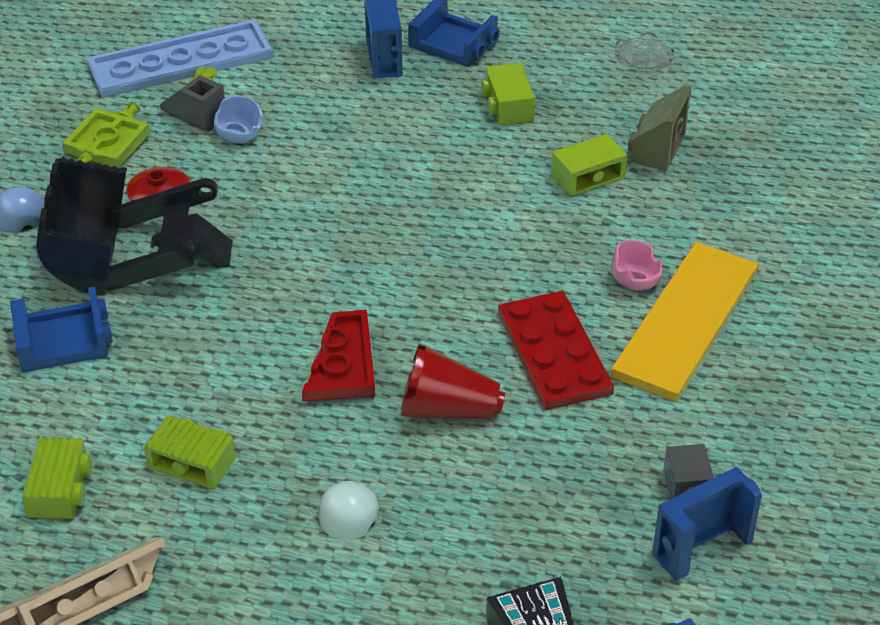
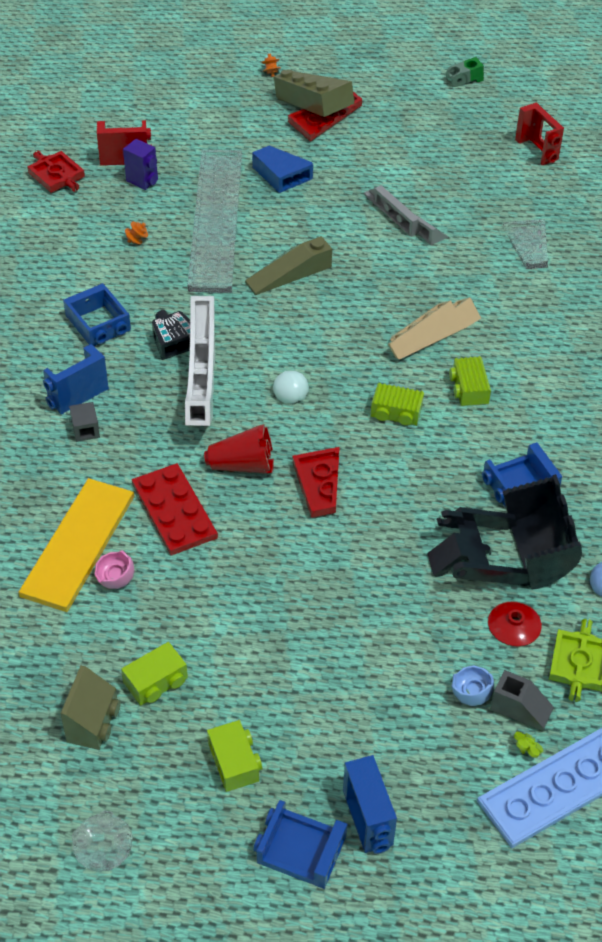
camera: 170 degrees right, 5 degrees up
(496, 507) = (201, 362): none -> white arch

